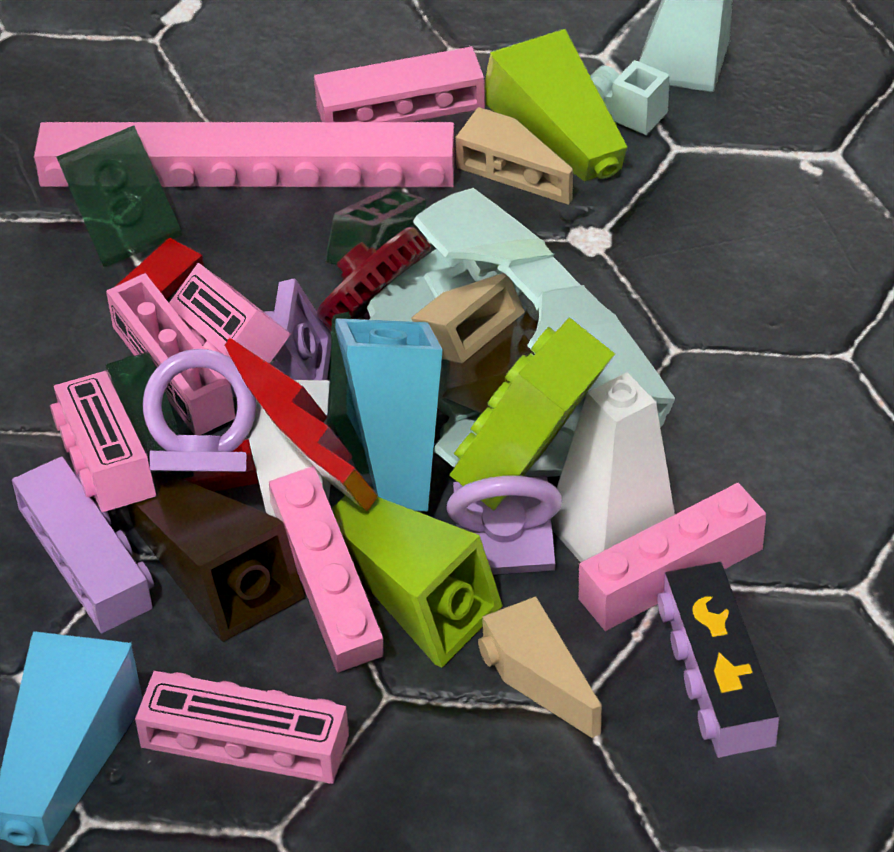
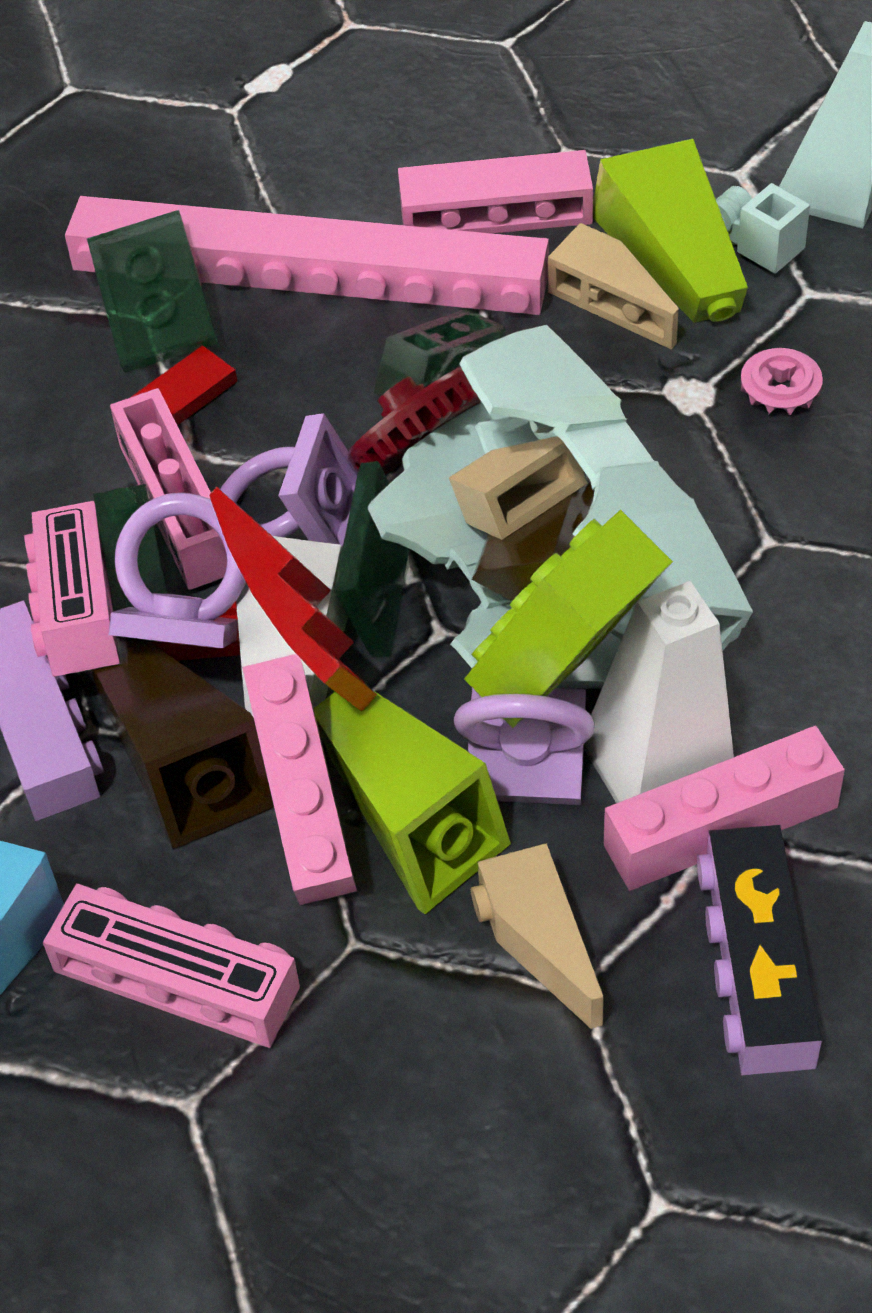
camera: 10 degrees right, 5 degrees up
(220, 312) = (241, 455): bright pink brick -> none
(395, 396) = (411, 569): medium azure slope -> none
(665, 208) = (781, 365): none -> bright pink gear

